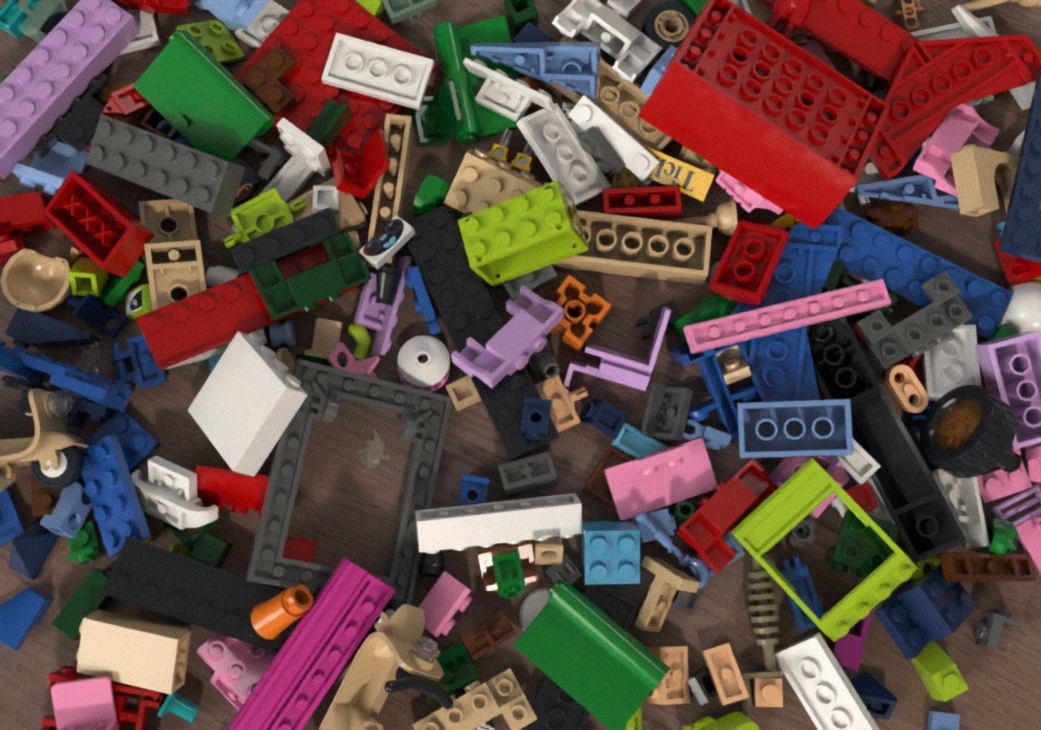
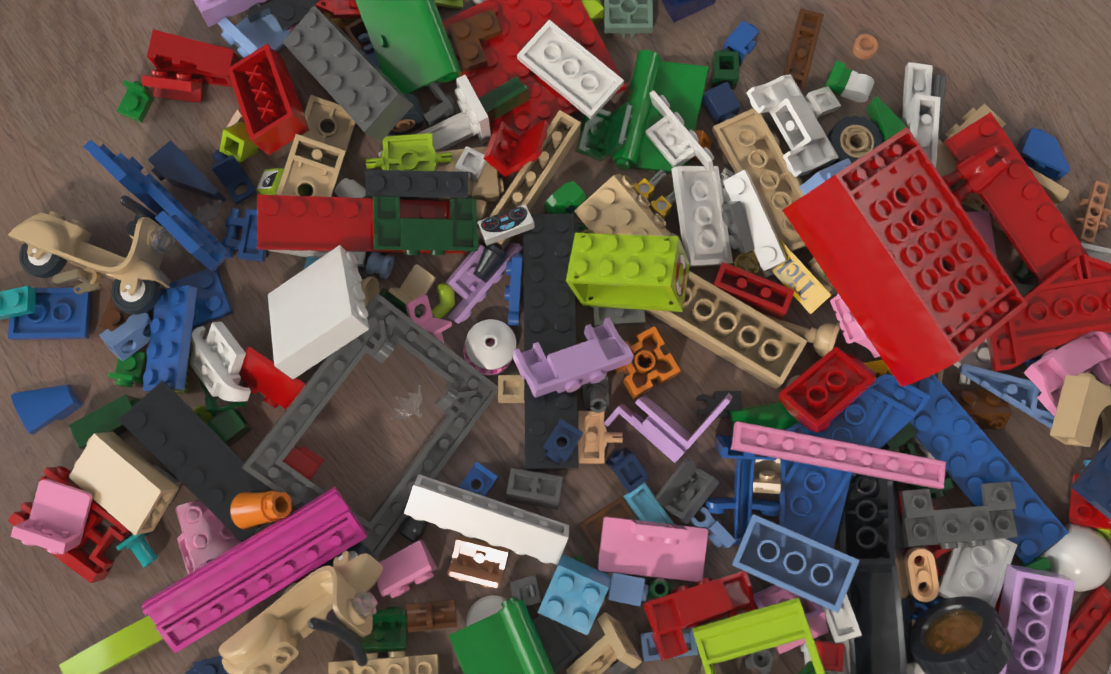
camera: 30 degrees right, 0 degrees up
(31, 549) = (84, 354): dark blue slope -> none
(35, 281) = (193, 125): tan cylinder -> none
(84, 409) = (179, 254): dark blue bracket -> none
(116, 289) = (257, 163): green plate -> none
(509, 574) = (474, 570): green bracket -> none
(549, 551) = (520, 566): tan bracket -> none
(562, 63) = (740, 133): medium blue wedge -> none
(666, 541) = (638, 633): medium blue piece -> none

